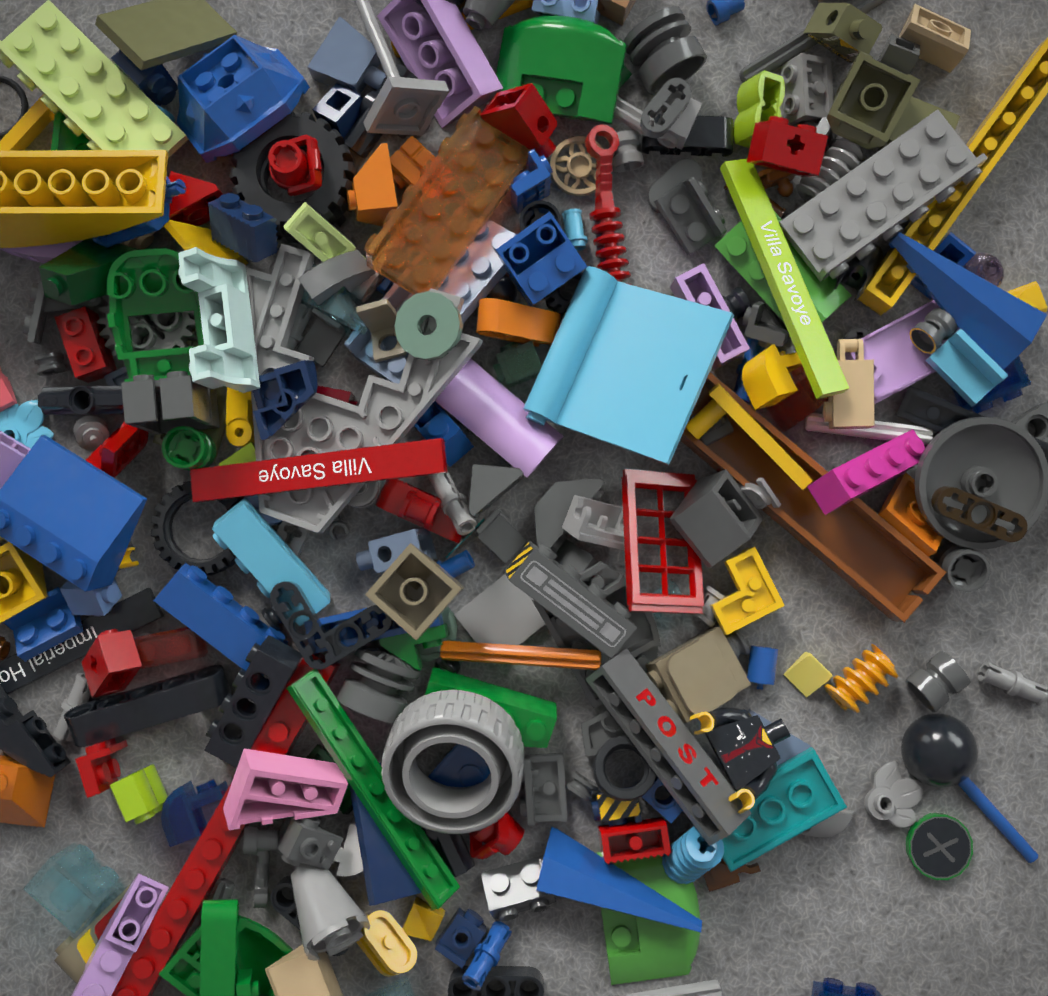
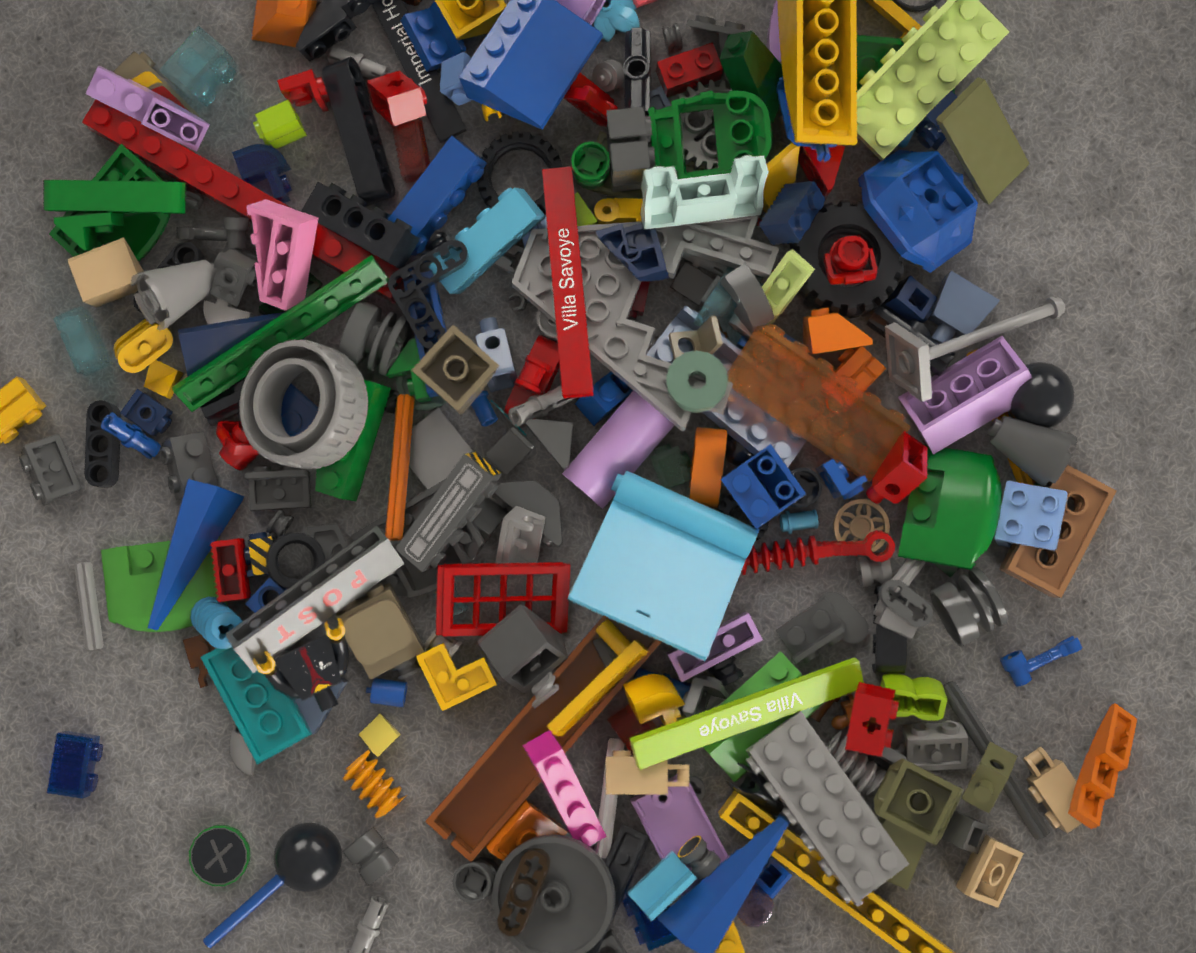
camera: 90 degrees right, 0 degrees up
(898, 793) = (267, 818): light grey plate -> none

